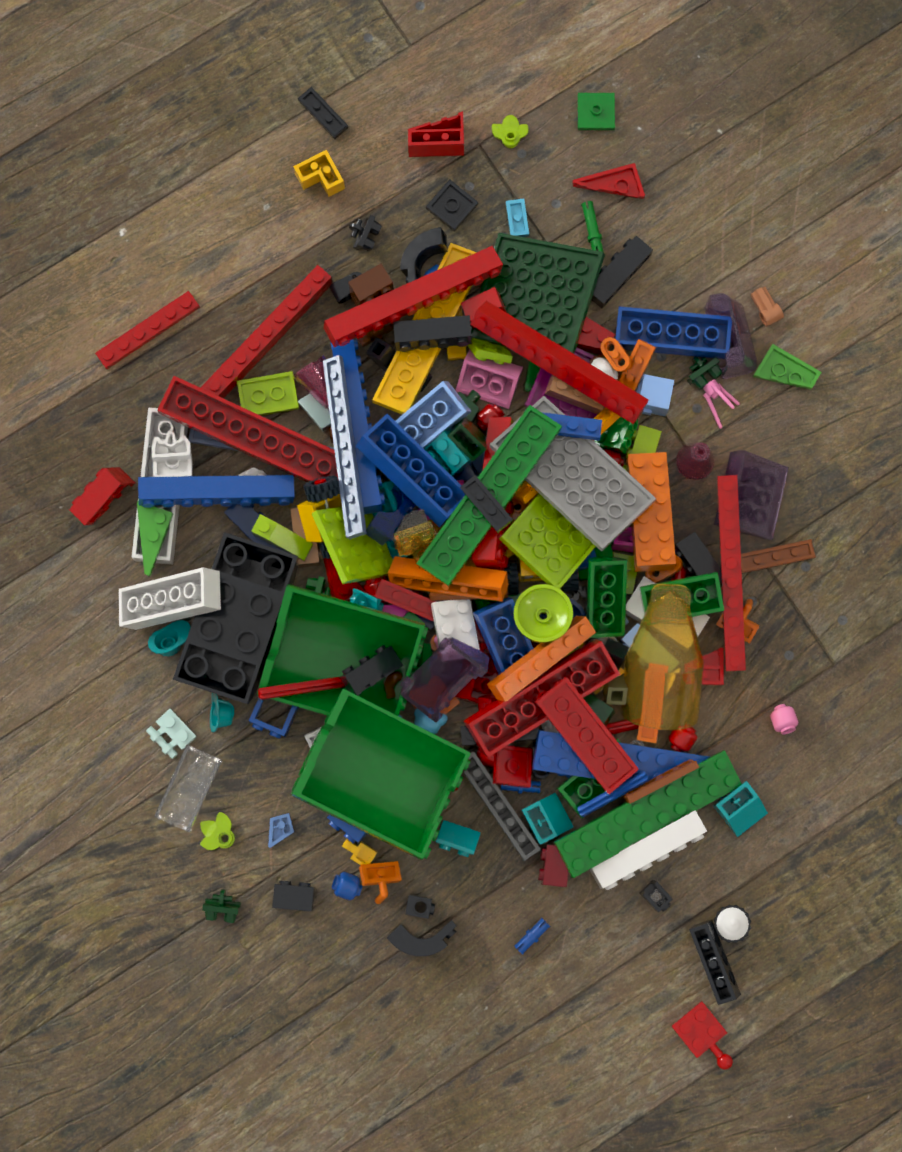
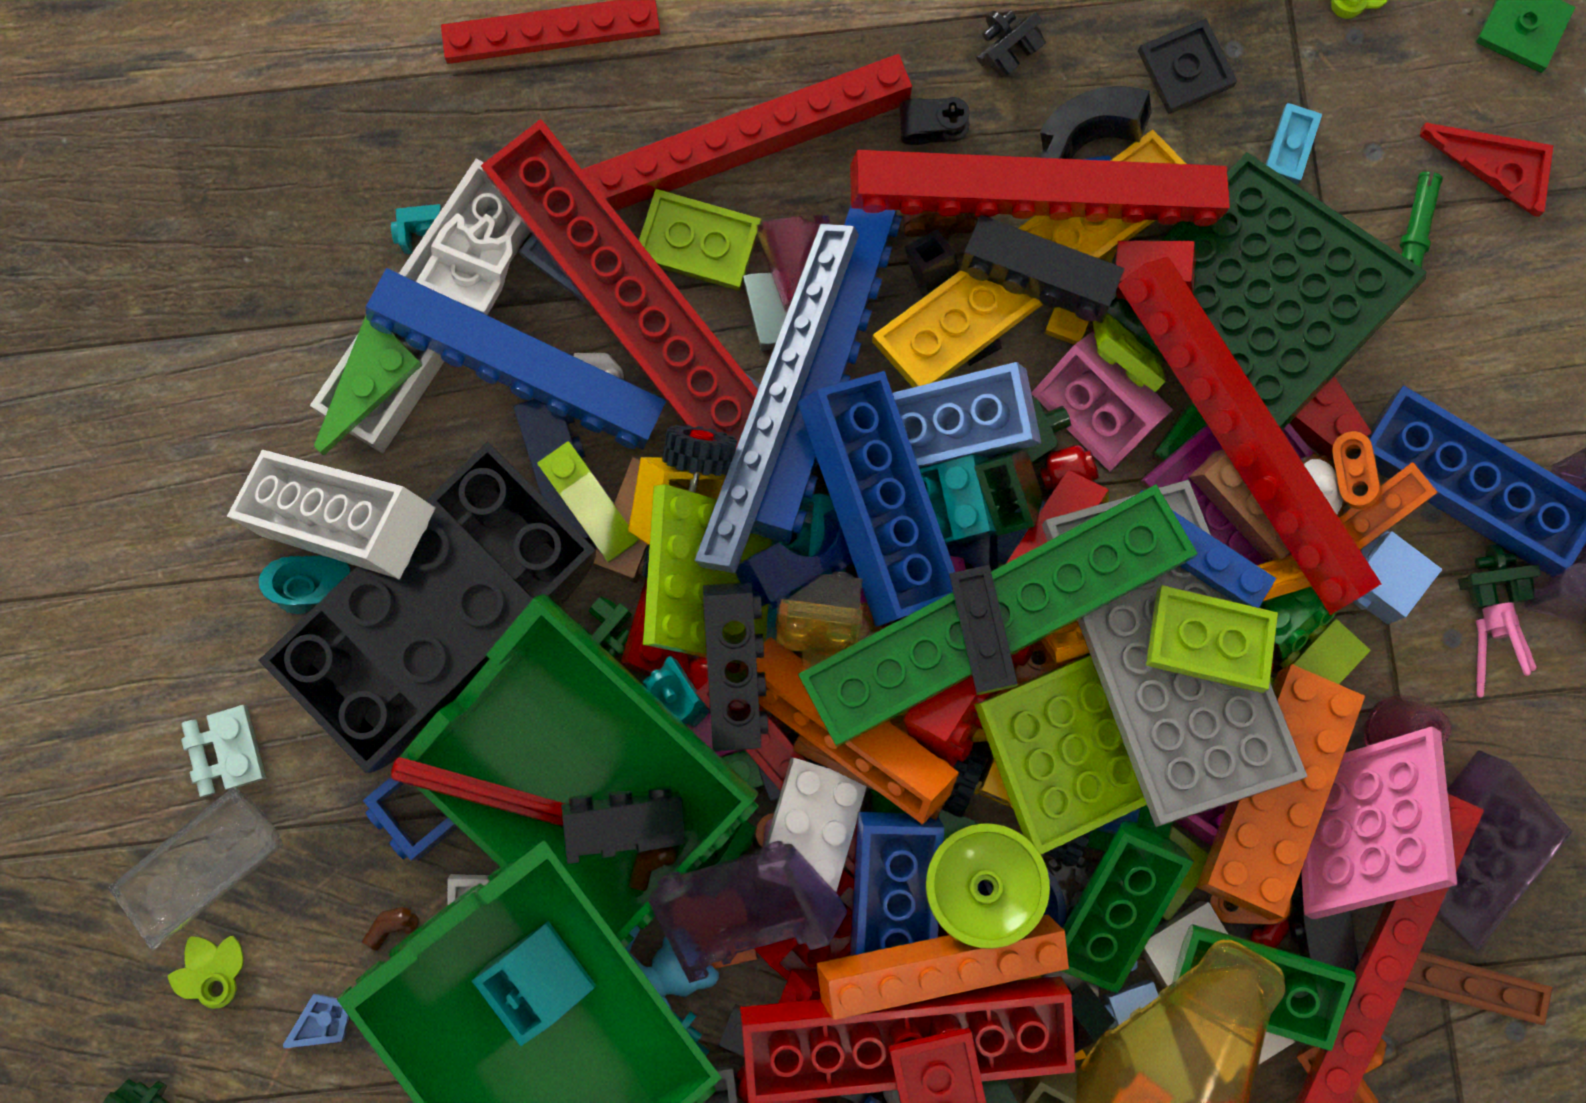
camera: 30 degrees right, 0 degrees up
(100, 494) = (318, 268): red wedge -> none
(135, 448) = (410, 221): none -> teal bracket
(221, 713) = (323, 765): teal piece -> none
(288, 769) = (389, 922): none -> reddish brown arm
(368, 550) = (729, 727): none -> black brick
(368, 755) = (533, 983): none -> teal slope
(370, 285) = (973, 127): reddish brown brick -> none
(586, 459) = (1212, 639): none -> lime plate
(620, 270) = (1436, 322): black brick -> none
(698, 505) = (1382, 828): none -> bright pink plate

